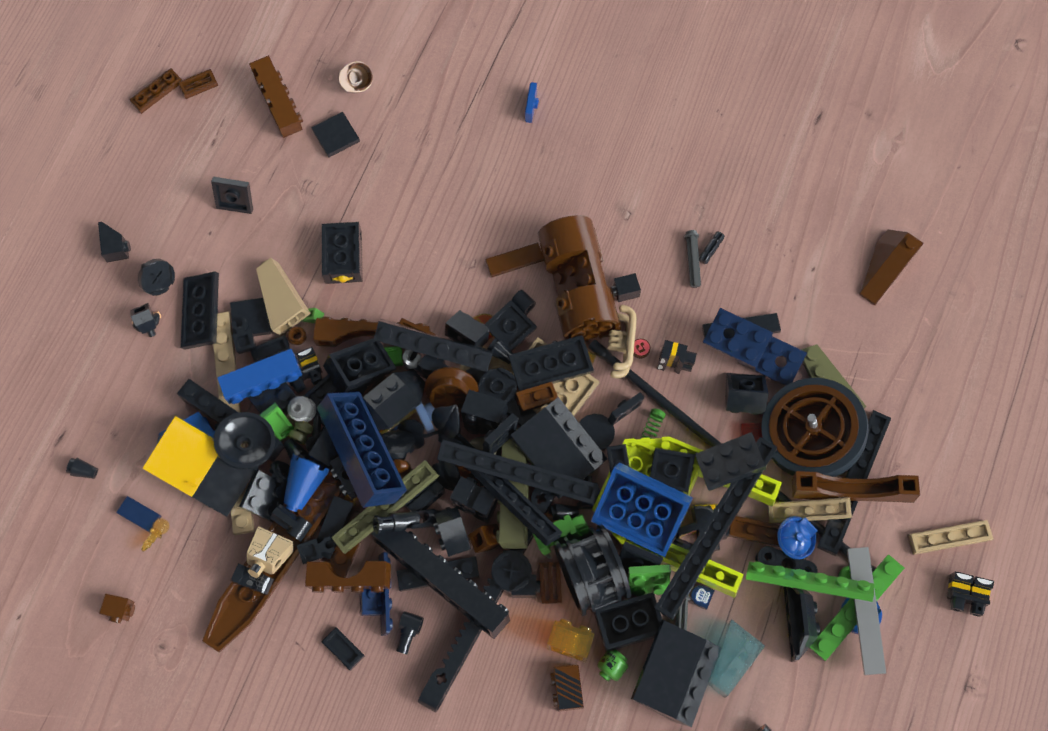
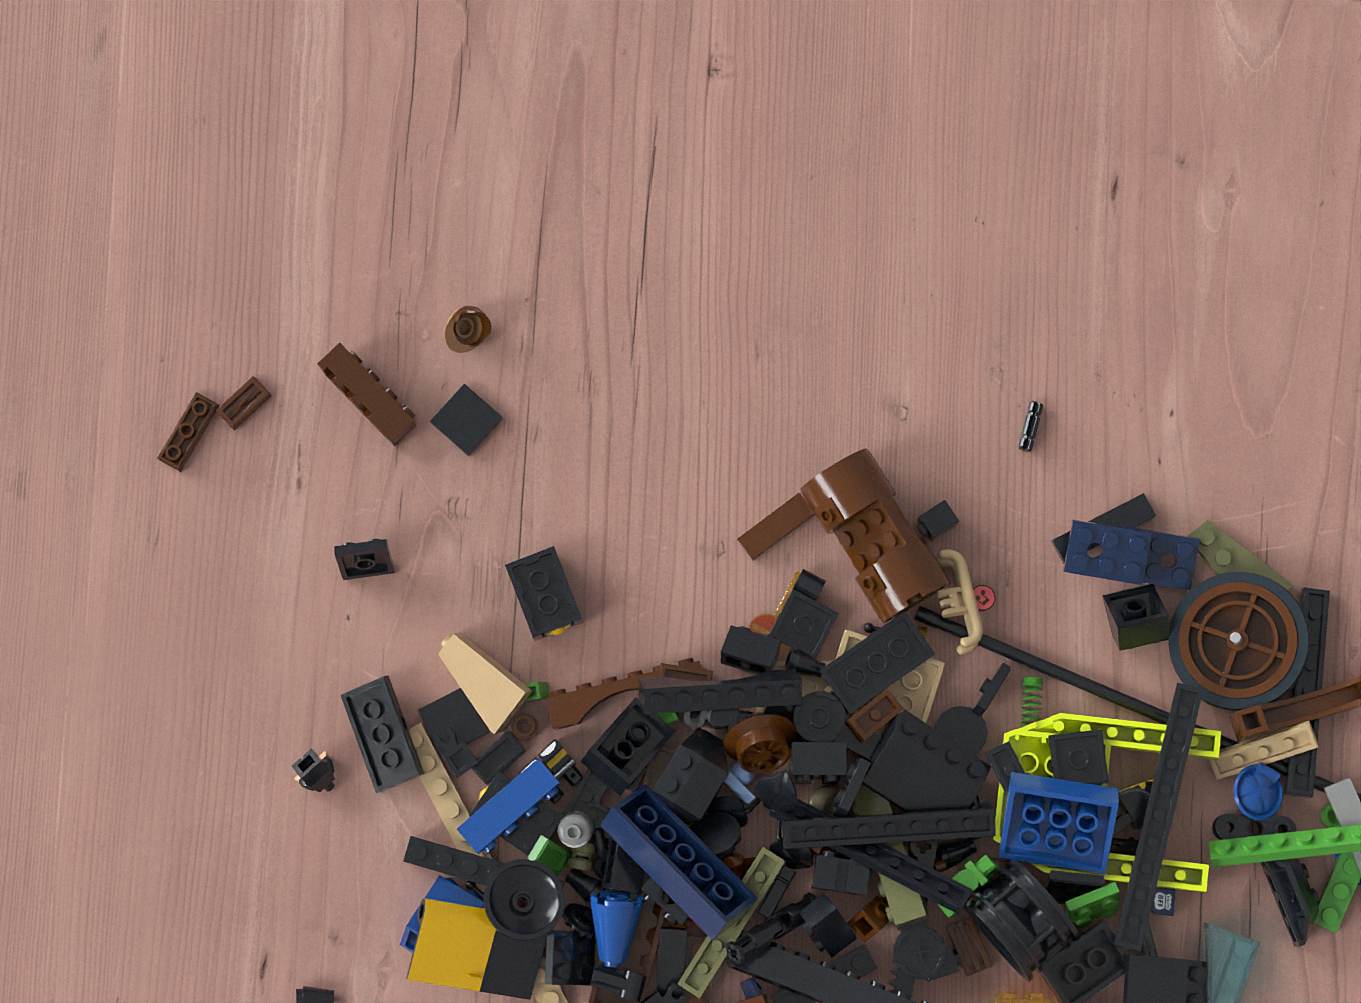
camera: 20 degrees left, 10 degrees up
(112, 244) = (225, 678): black slope -> none
(156, 277) = (304, 707): black tile -> none
(532, 102) = (722, 289): blue plate -> none
(676, 356) = (1033, 598): black hips -> none
(693, 258) = (1011, 450): dark grey axle -> none
(730, 461) = (1150, 726): black plate -> none
(754, 531) = (1206, 796): reddish brown plate -> none
(755, 428) = (1159, 668): clear red tile -> none
(888, 261) = (1268, 370): reddish brown wedge -> none

